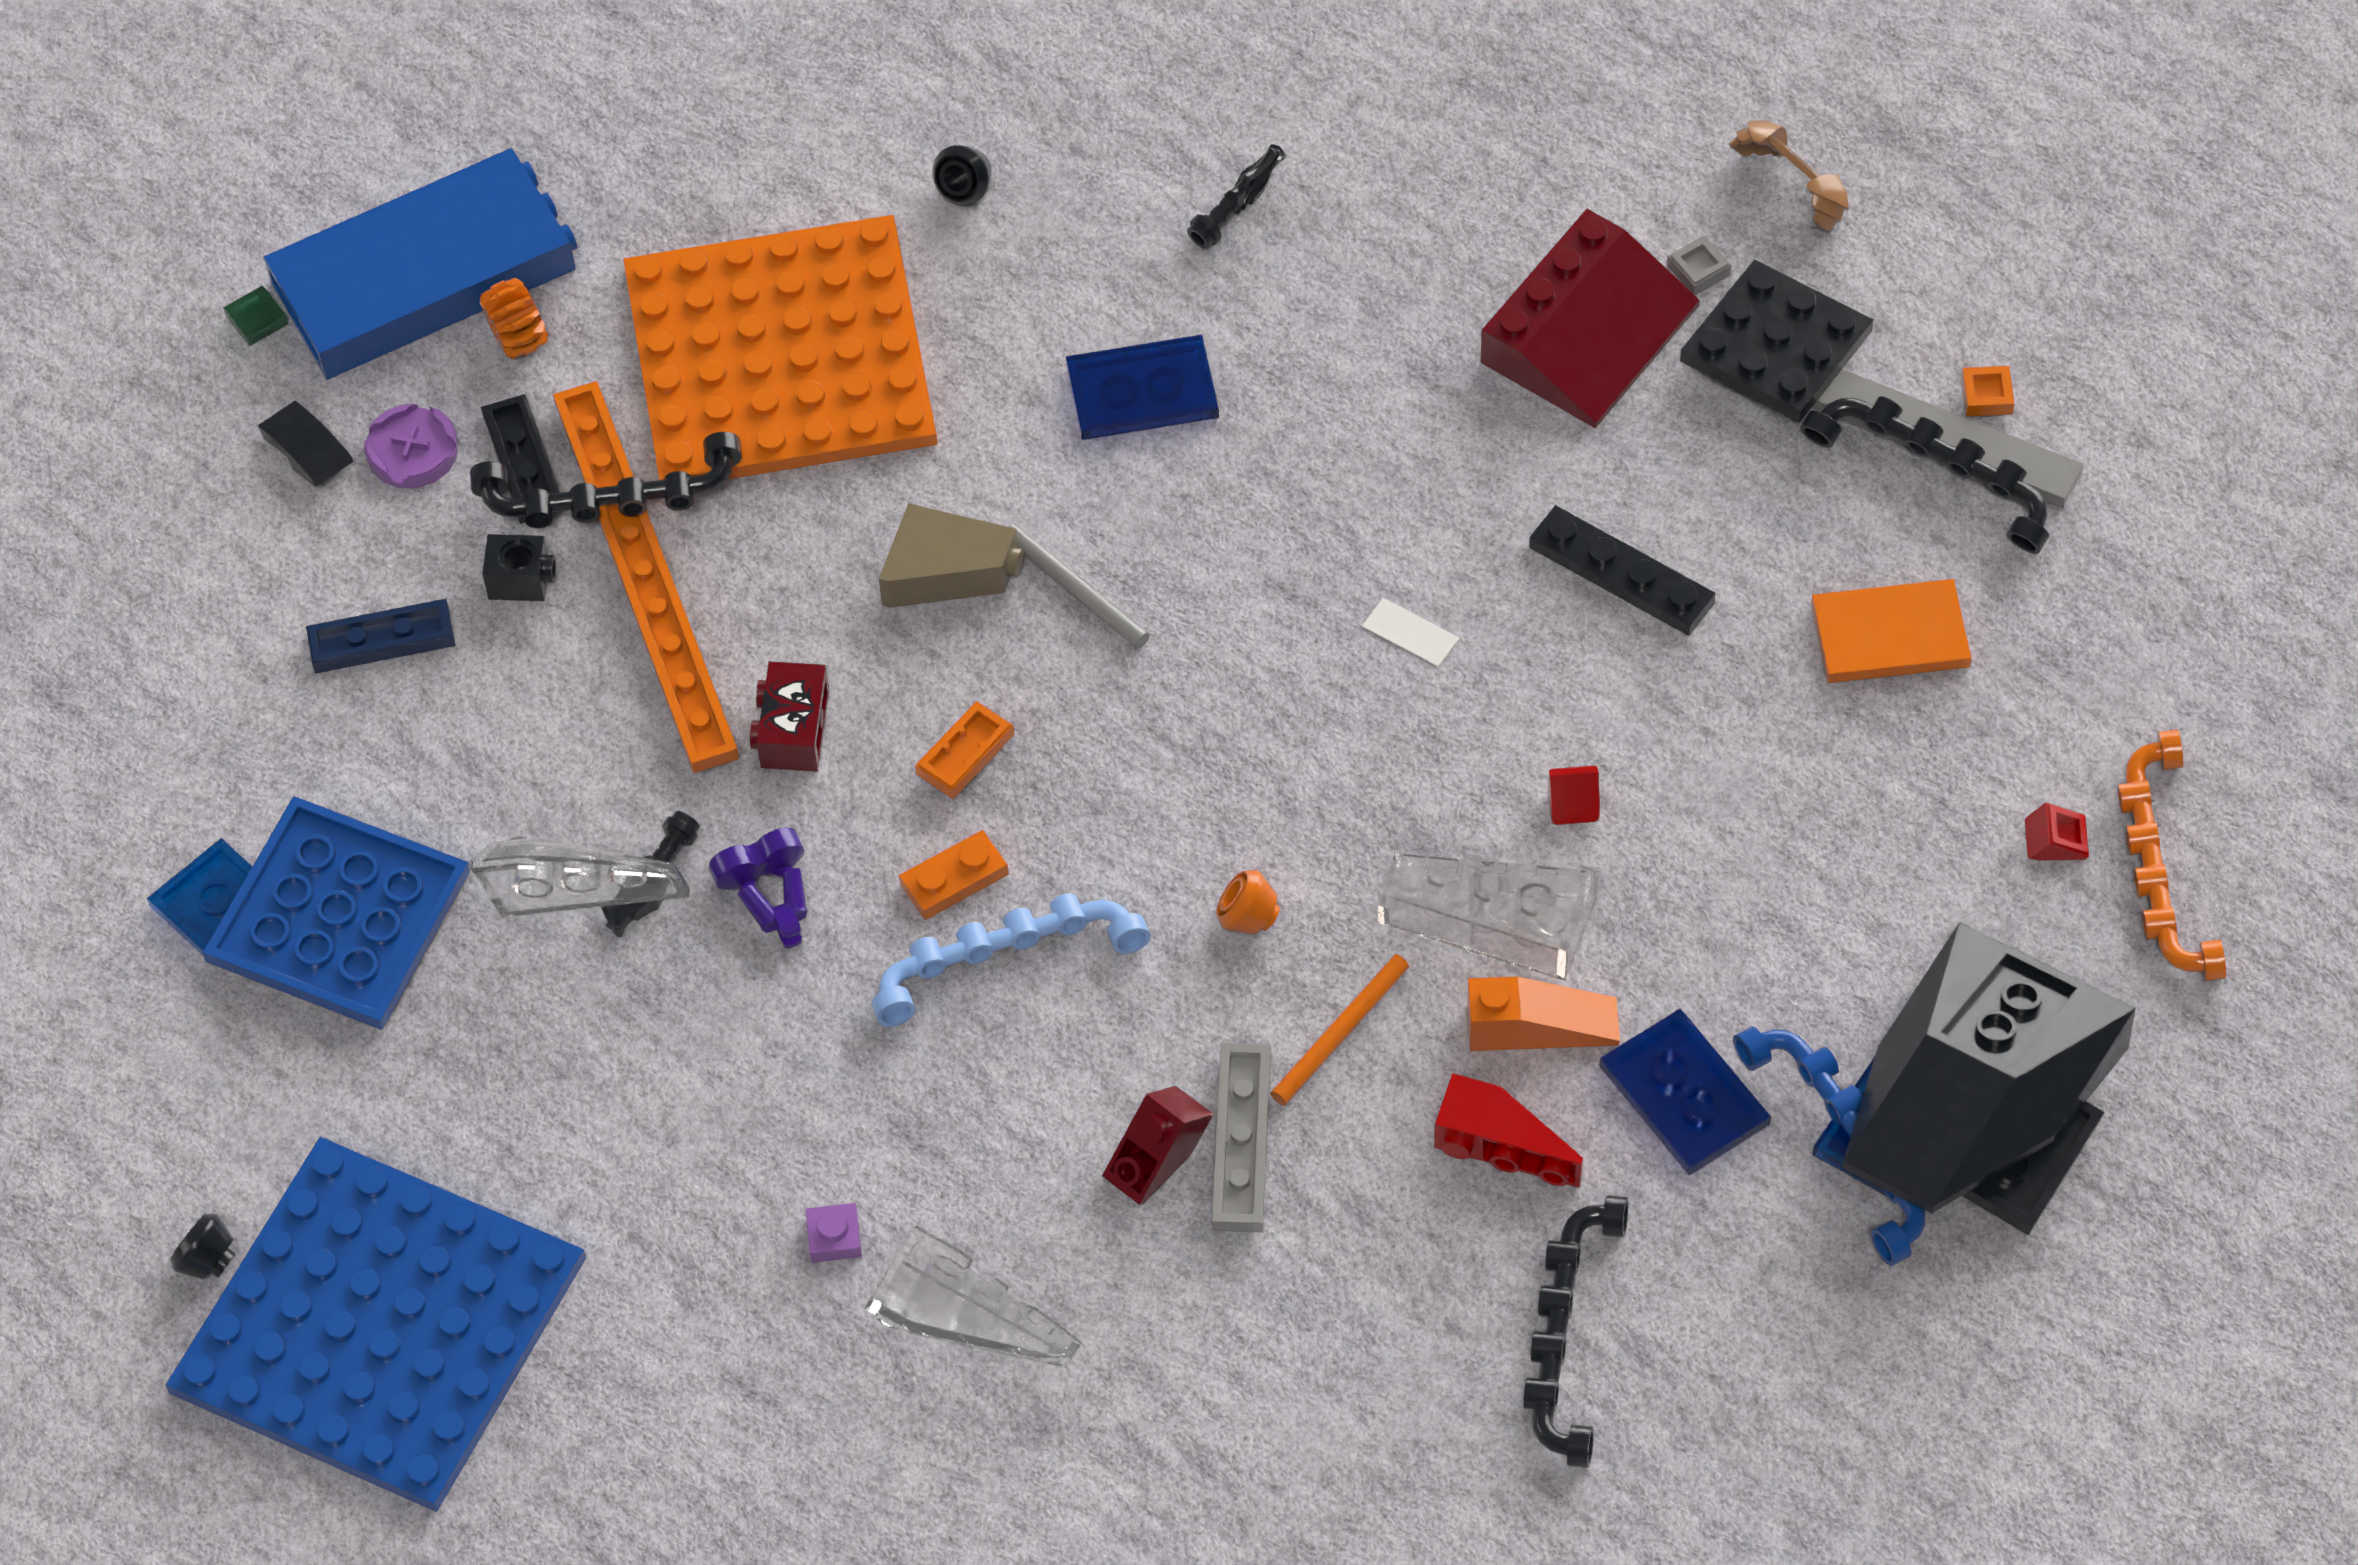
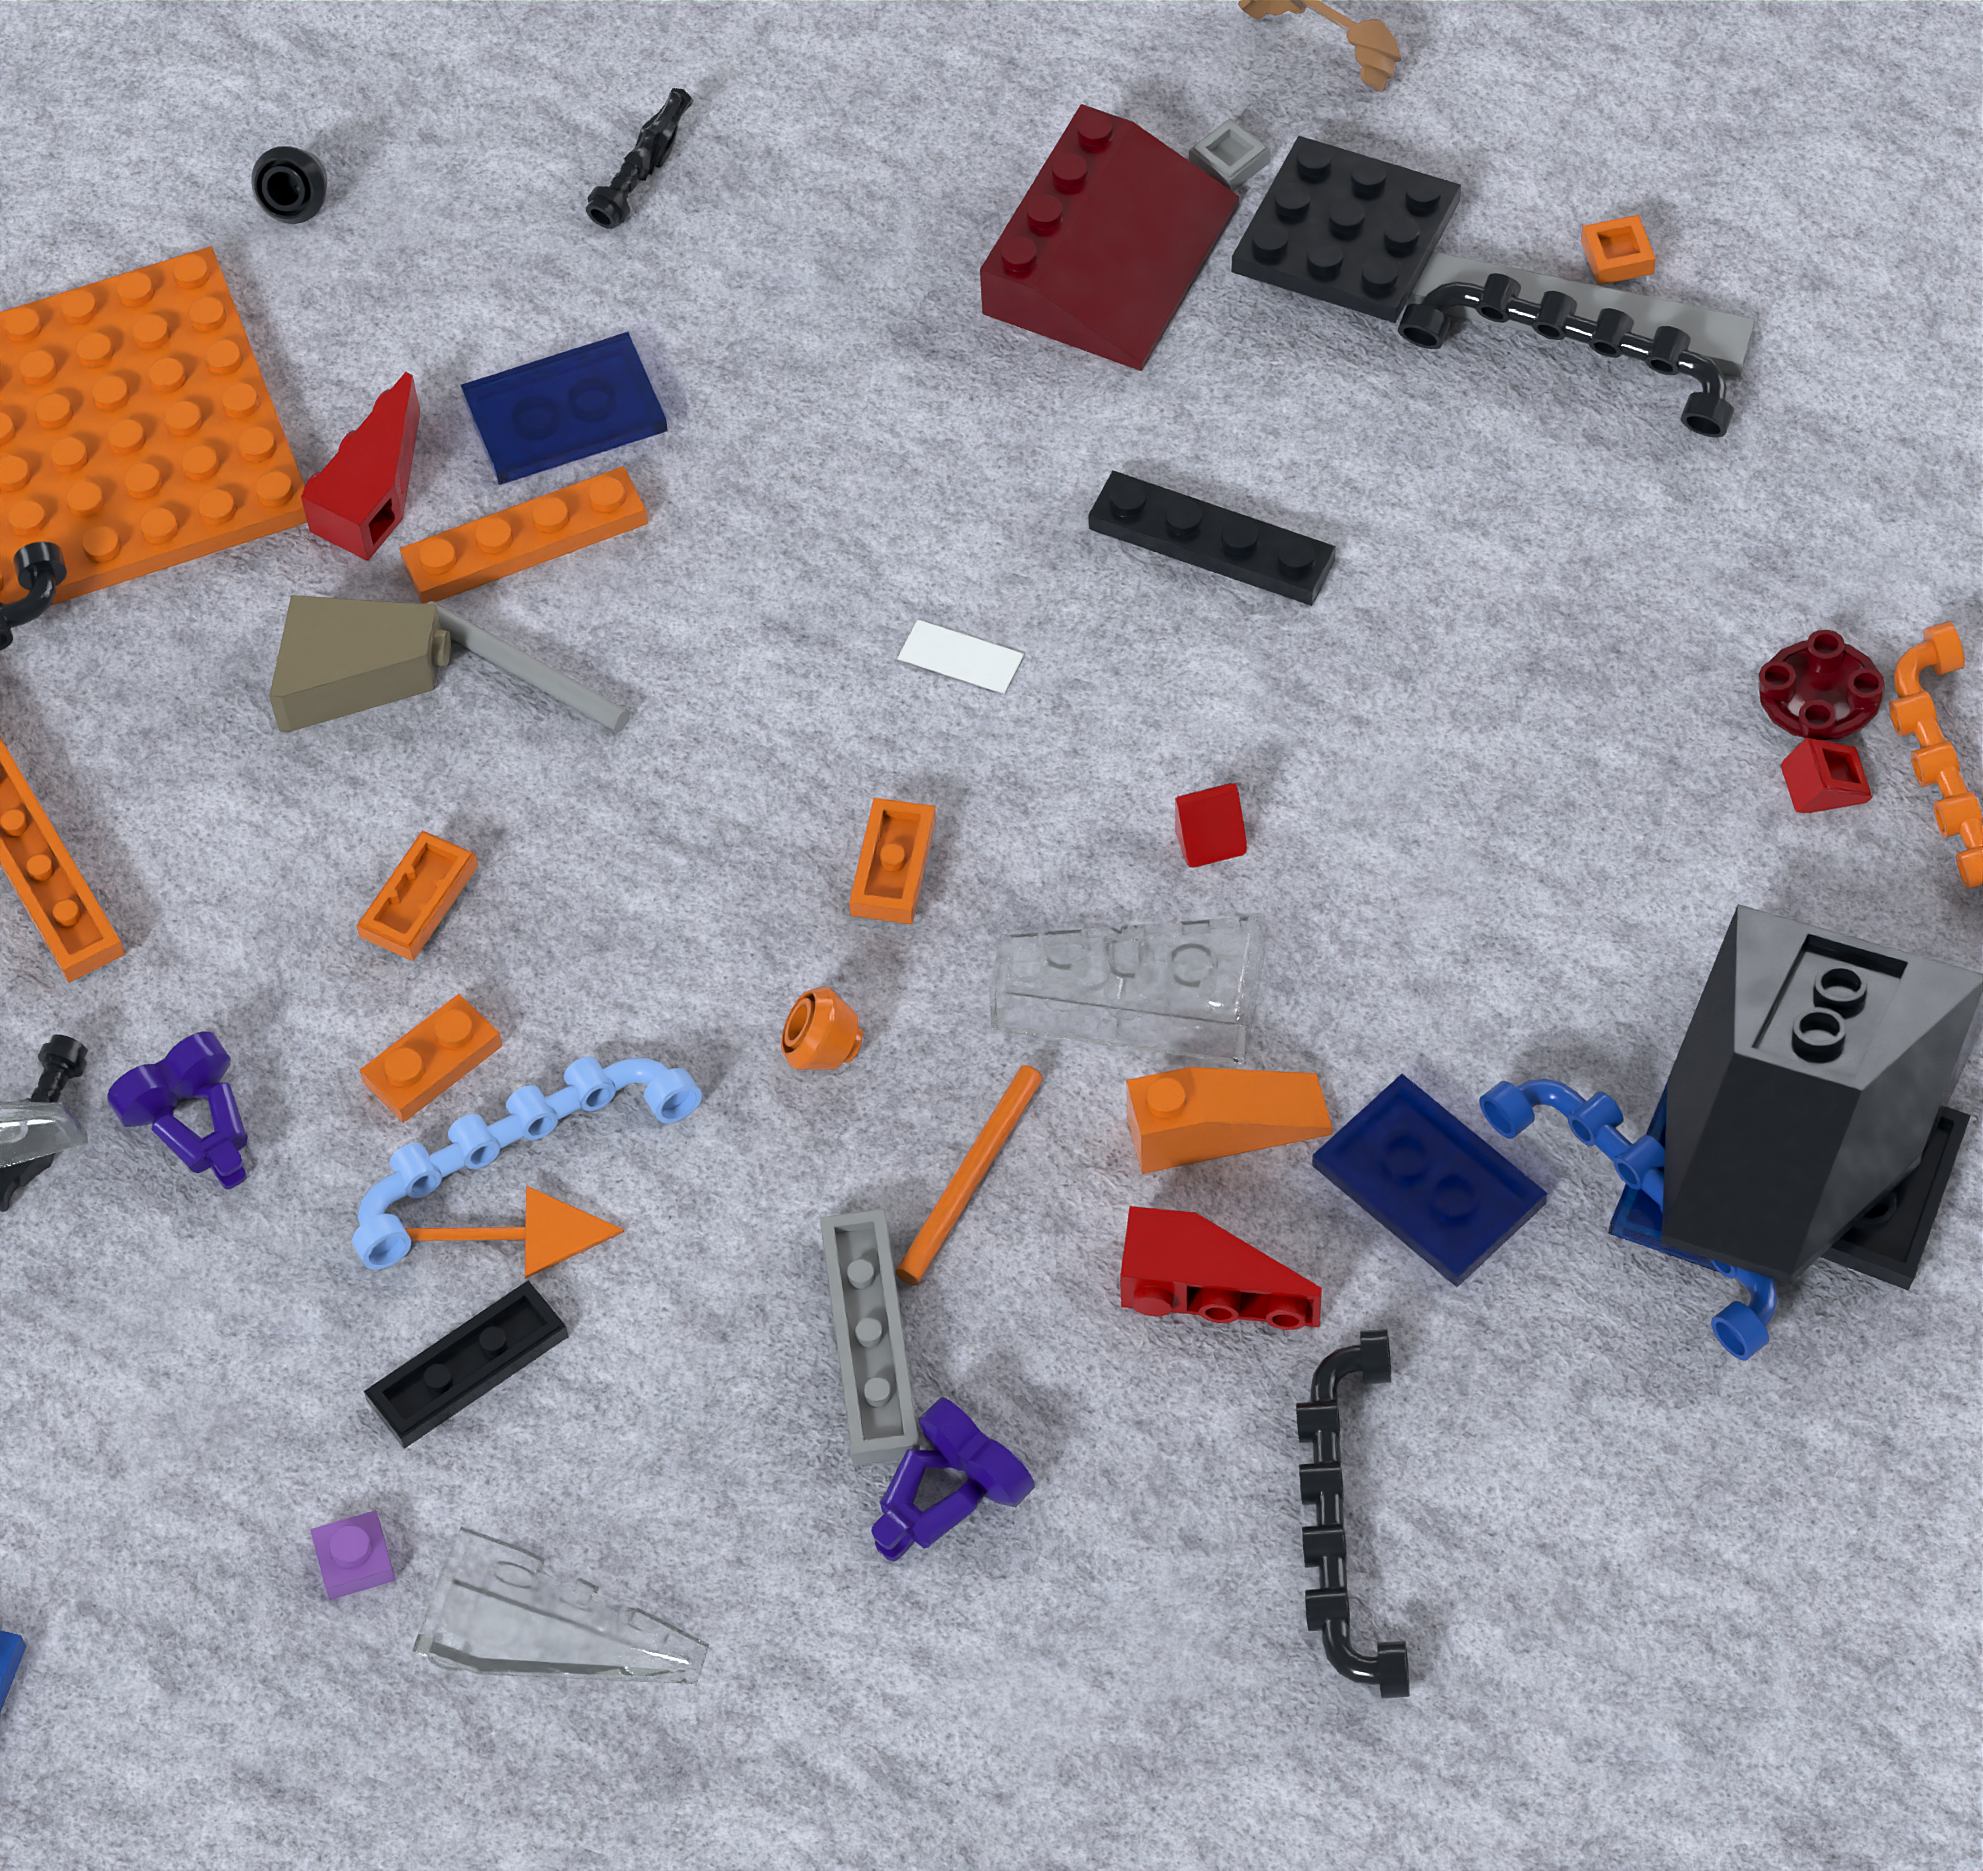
camera: 10 degrees left, 0 degrees up
(791, 716) = (184, 889): dark red brick -> none
(940, 1107) = (466, 1364): none -> black tile
(979, 424) = (366, 483): none -> red slope
(1020, 1019) = (550, 1232): none -> orange piece
(1093, 483) = (523, 536): none -> orange plate
(1156, 1142) = (760, 1362): dark red slope -> none
(1289, 1227) = (957, 1445): none -> dark purple piece
(1327, 782) = (892, 861): none -> orange plate
(1891, 631) = (1563, 559): orange tile -> none
(2067, 765) = (1821, 688): none -> dark red dish

